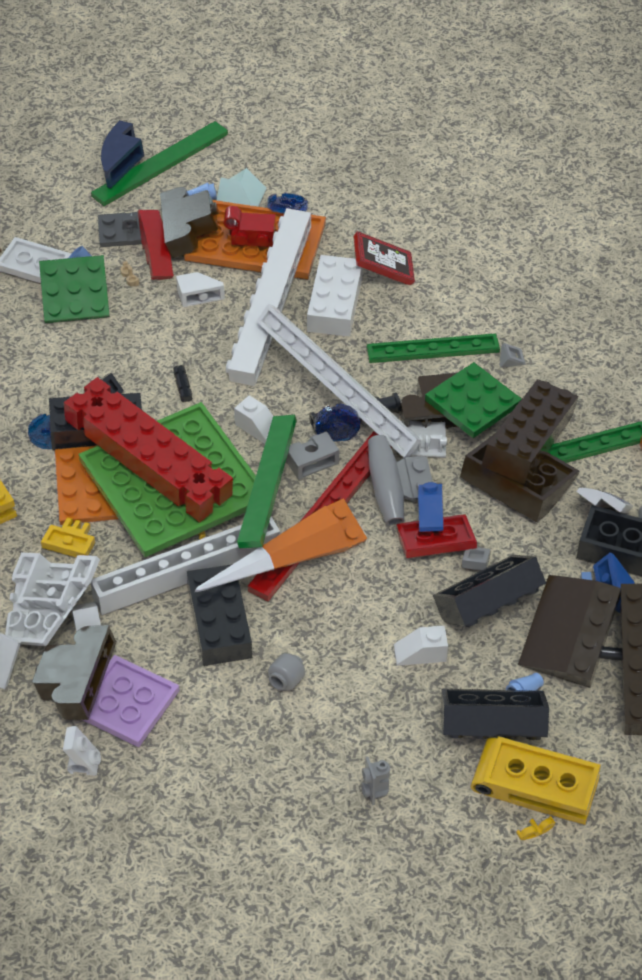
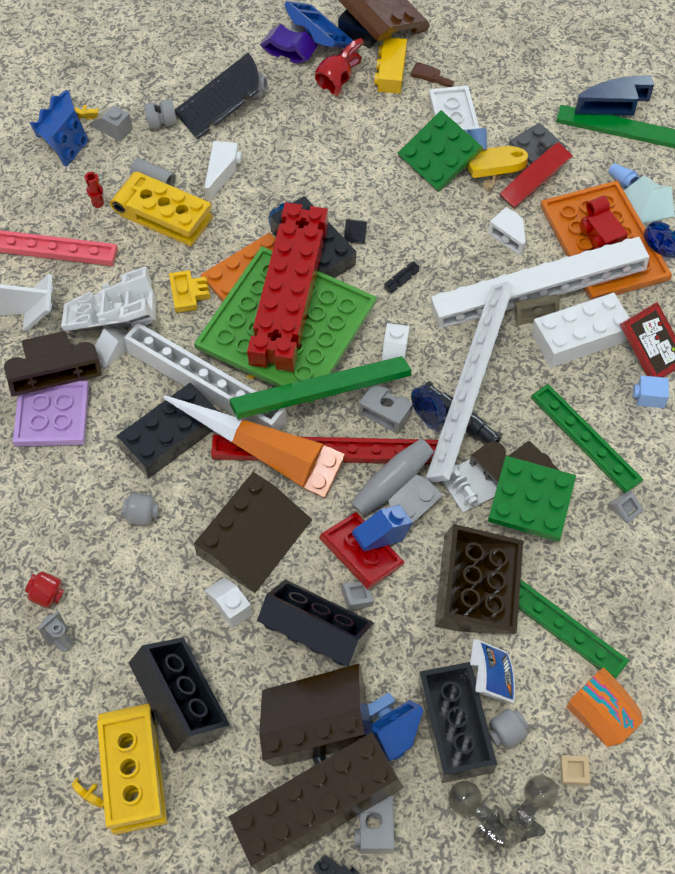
camera: 60 degrees right, 10 degrees up
(120, 258) = (498, 161): none -> yellow tile
(186, 219) = (576, 178): brick -> none
(294, 307) = (528, 310): none -> dark tan plate
(318, 779) = (44, 589): none -> red head
(365, 602) = (252, 532): none -> dark brown slope
(424, 286) = (651, 391): none -> light blue brick
(529, 431) = (525, 564): dark brown brick -> none
(529, 682) = (236, 707): light blue cone -> none

